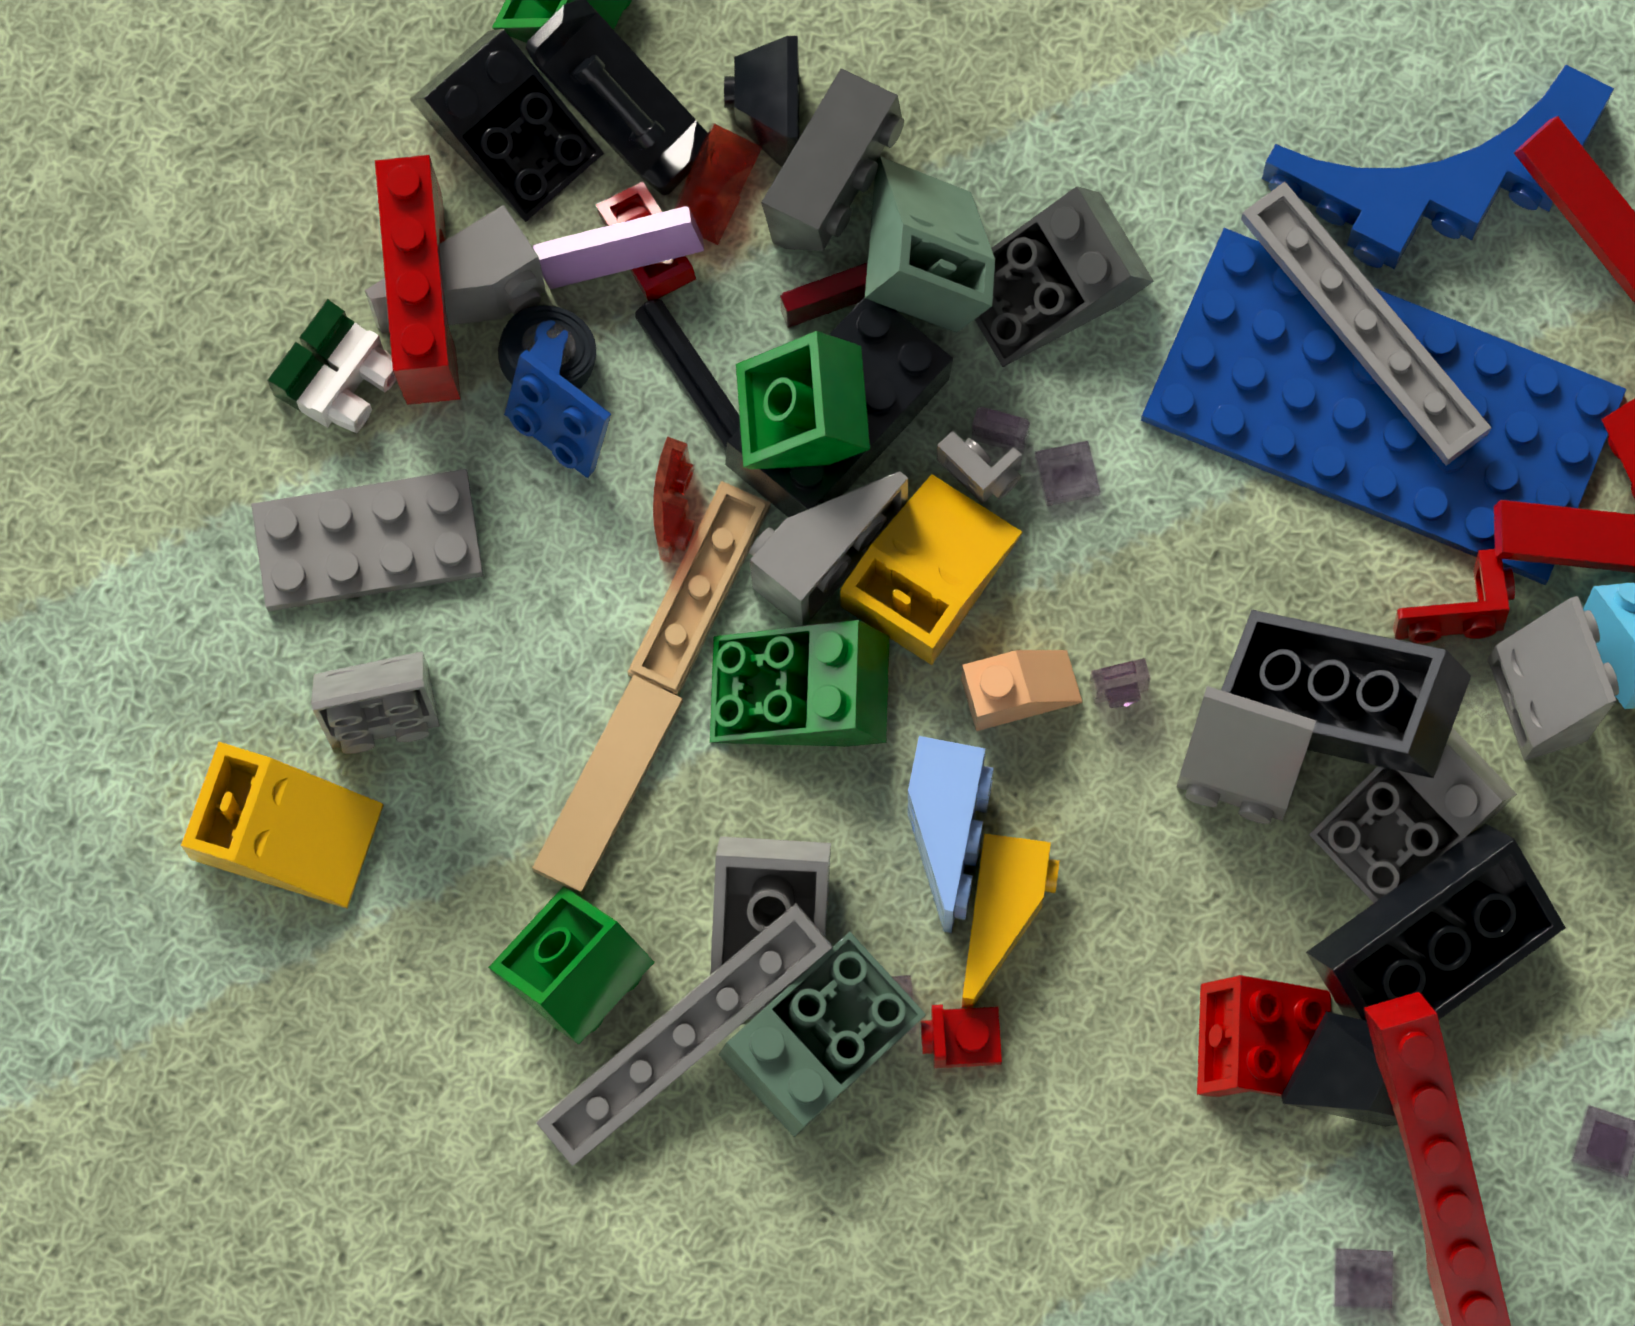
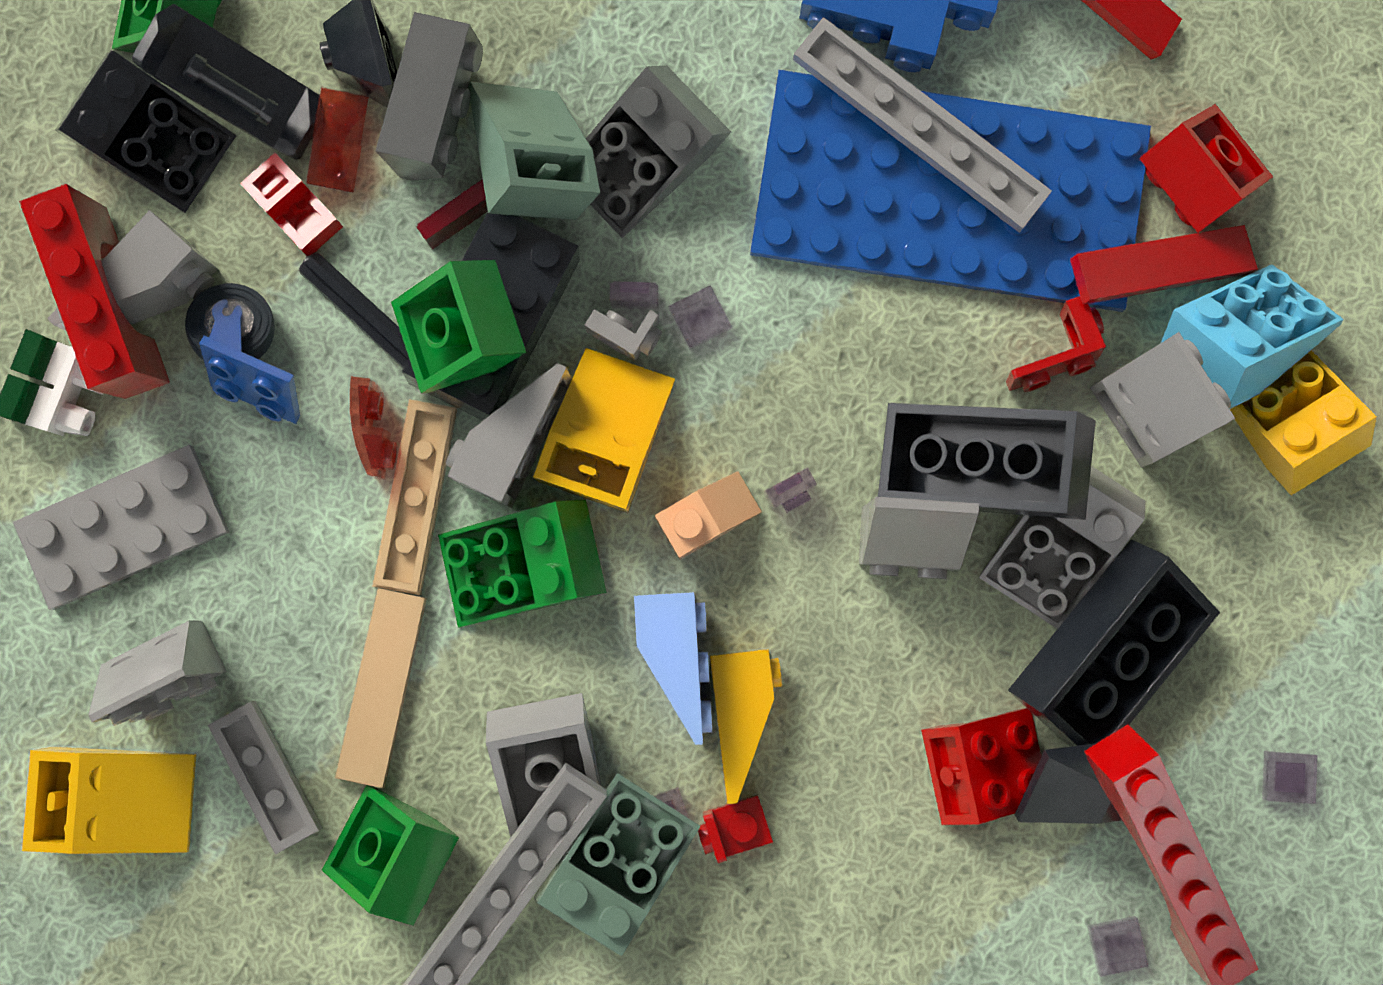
camera: 15 degrees left, 10 degrees up
(455, 847) = (265, 777): none -> light grey plate
(619, 247) = (266, 218): lavender tile -> none

